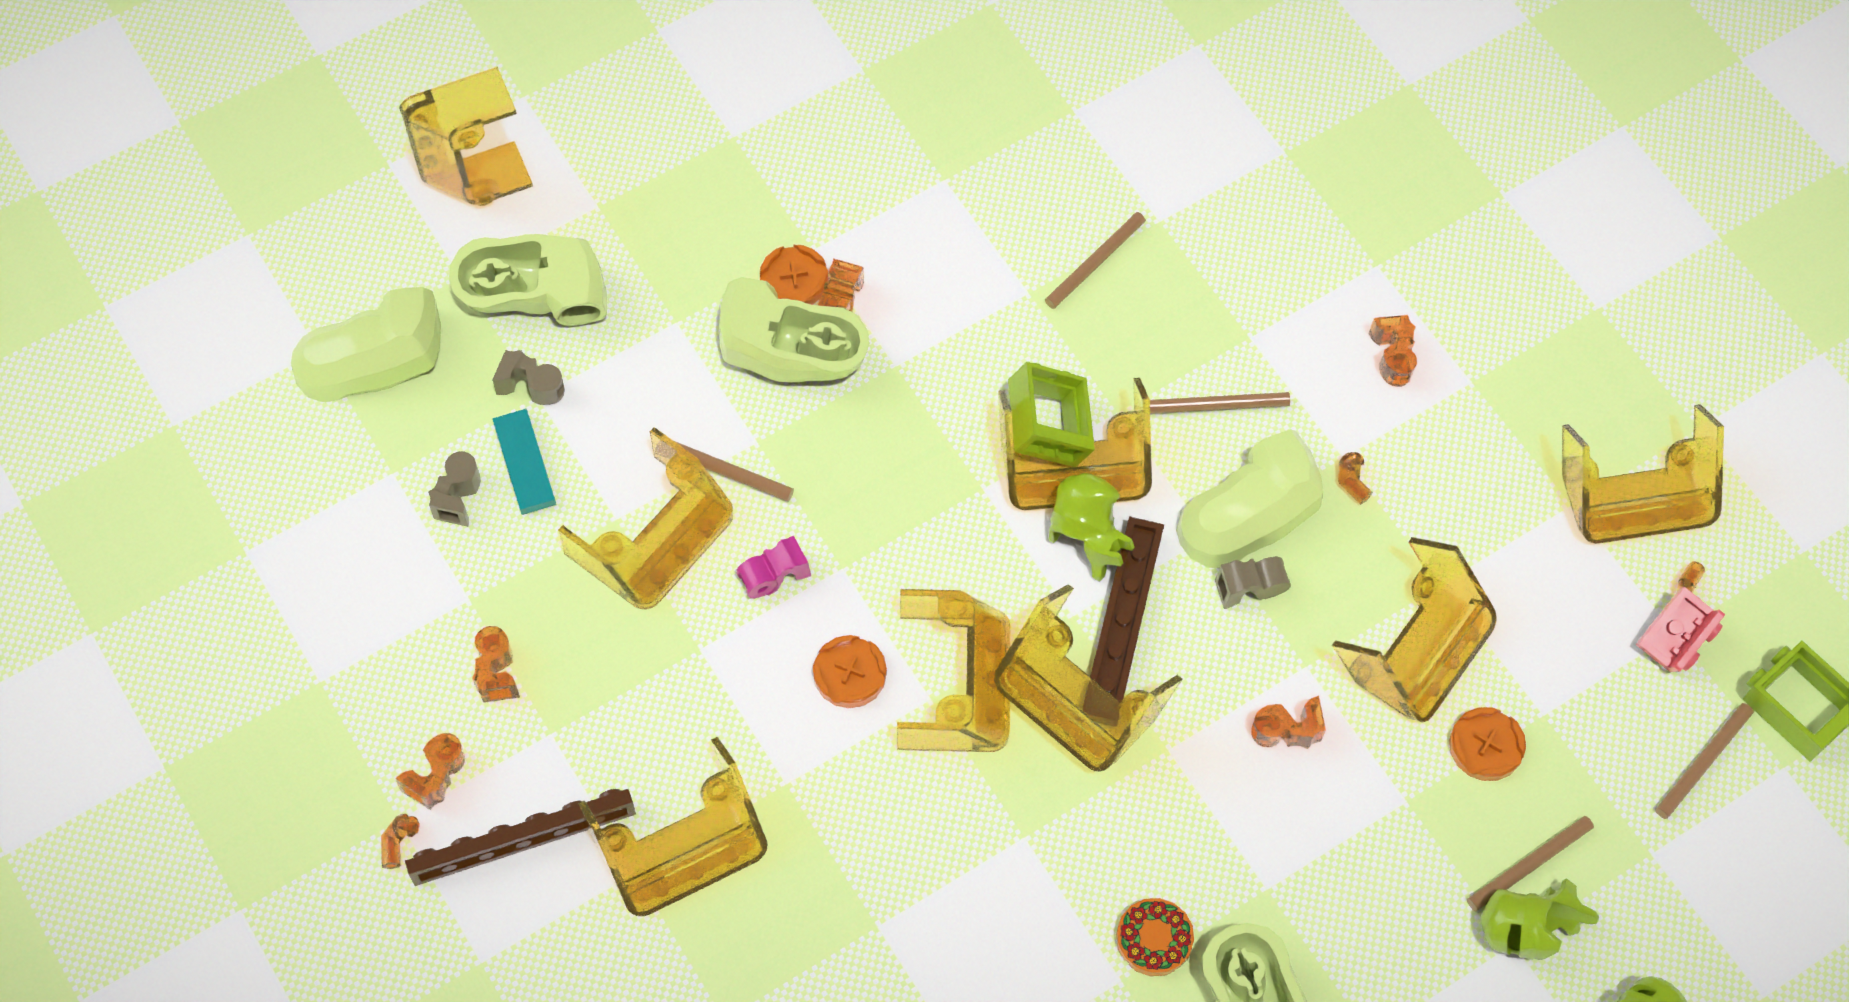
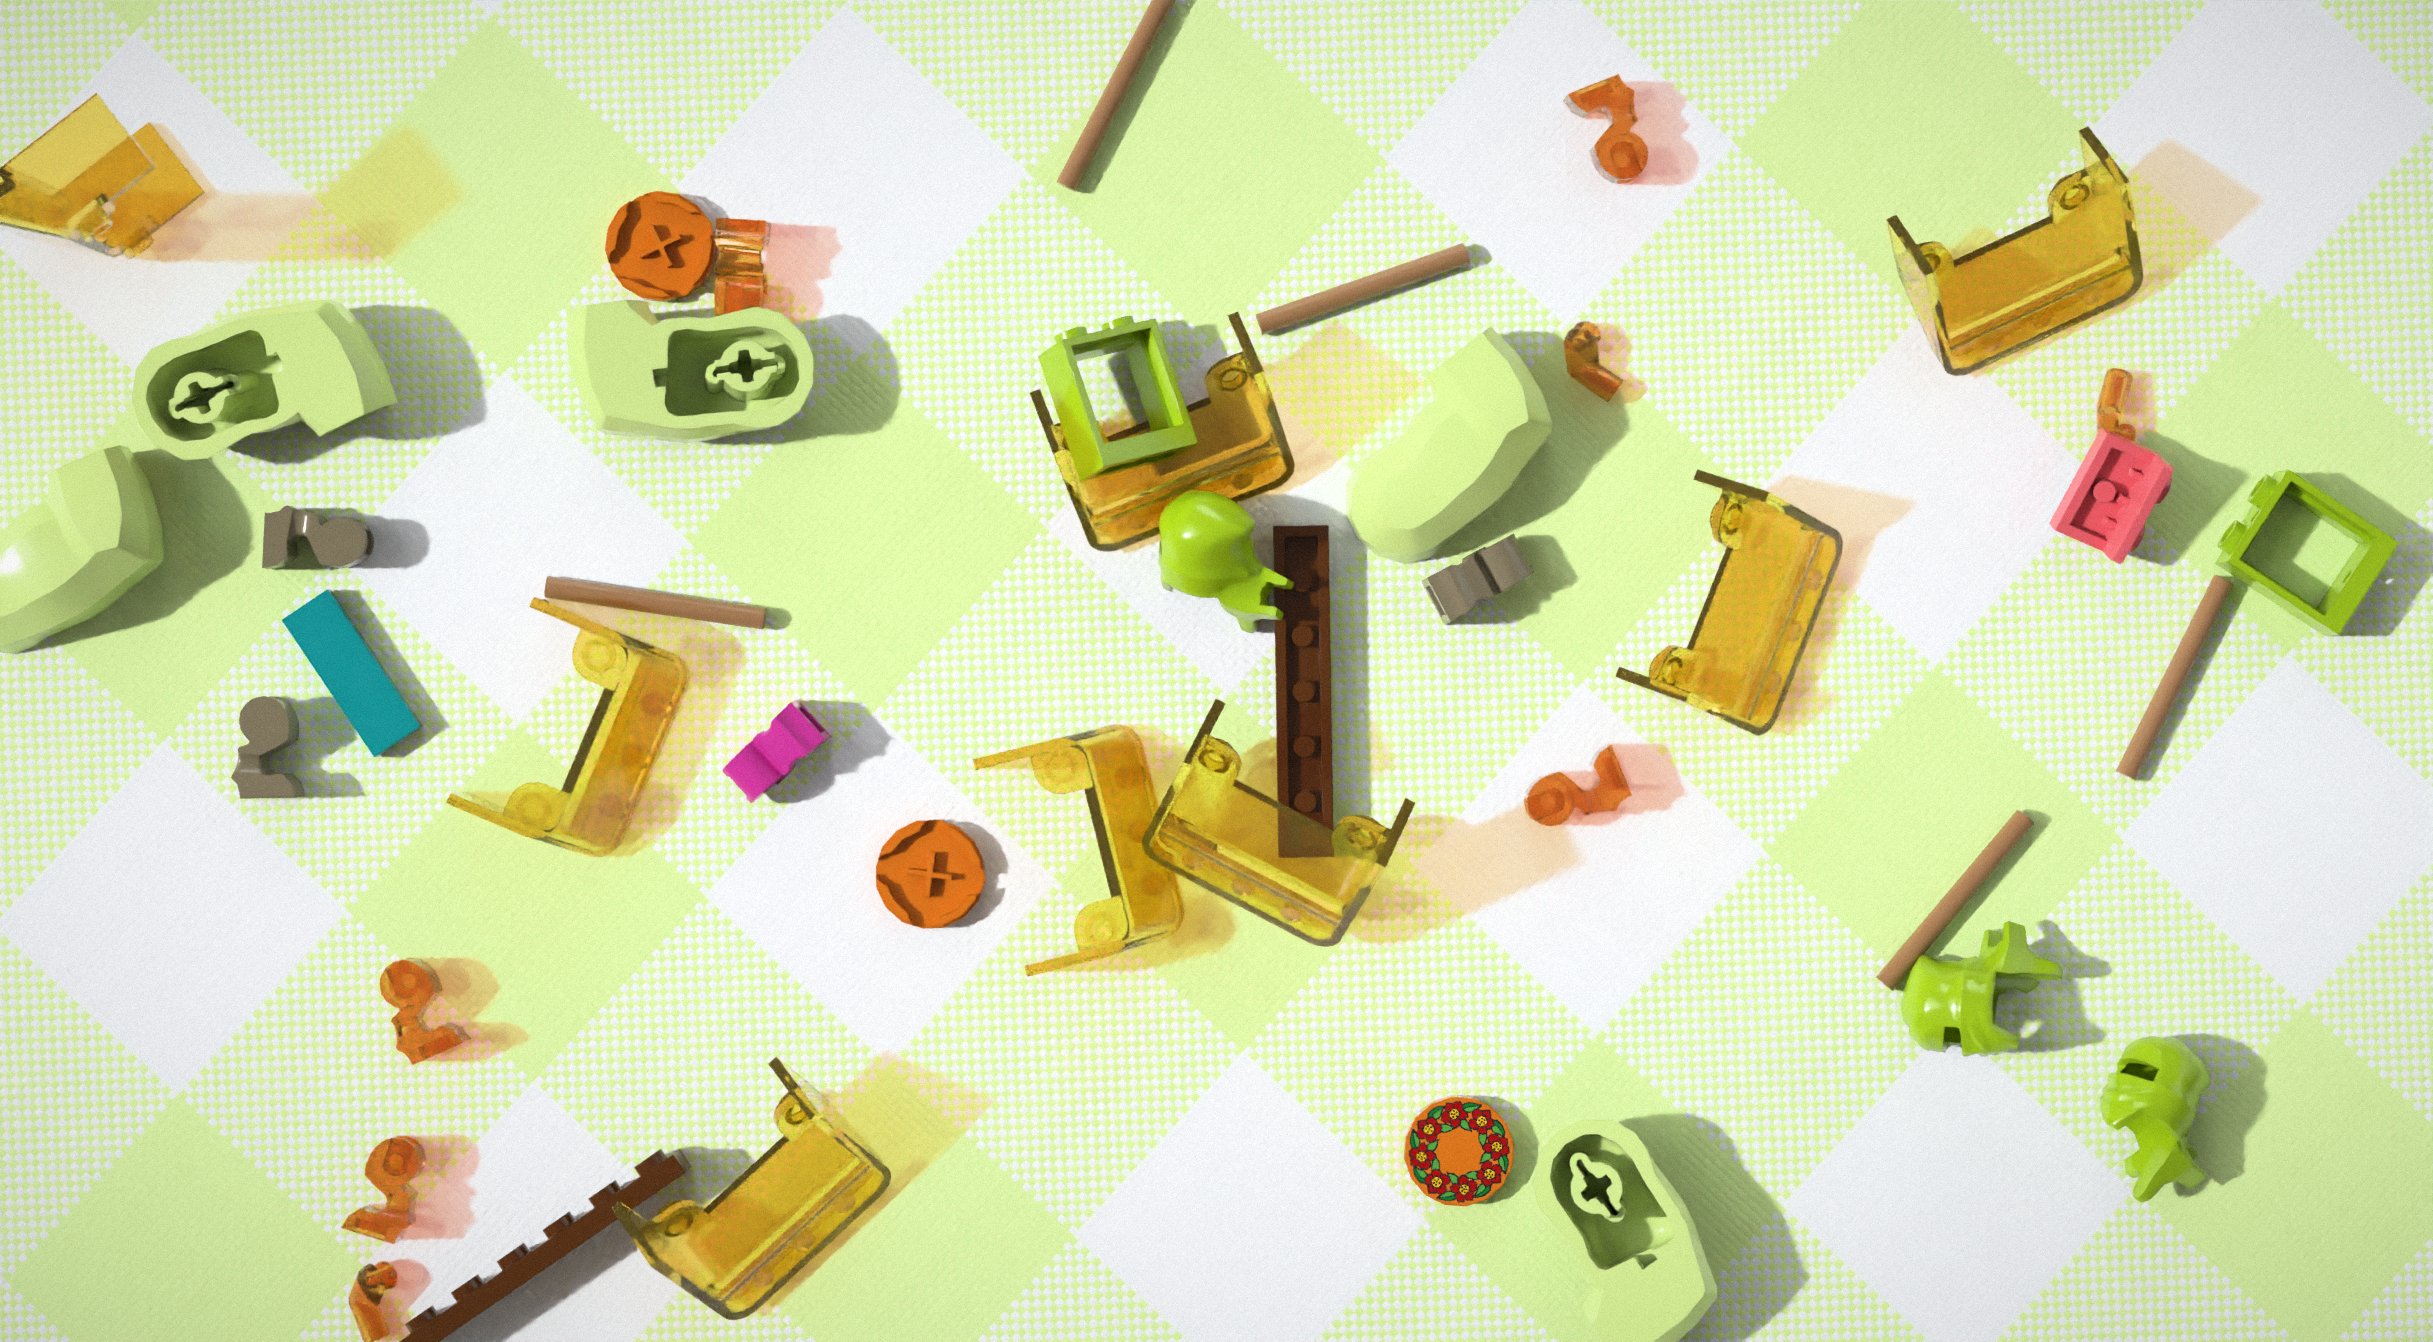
camera: 15 degrees left, 25 degrees up
(1487, 744) = (1863, 736): orange tile -> none

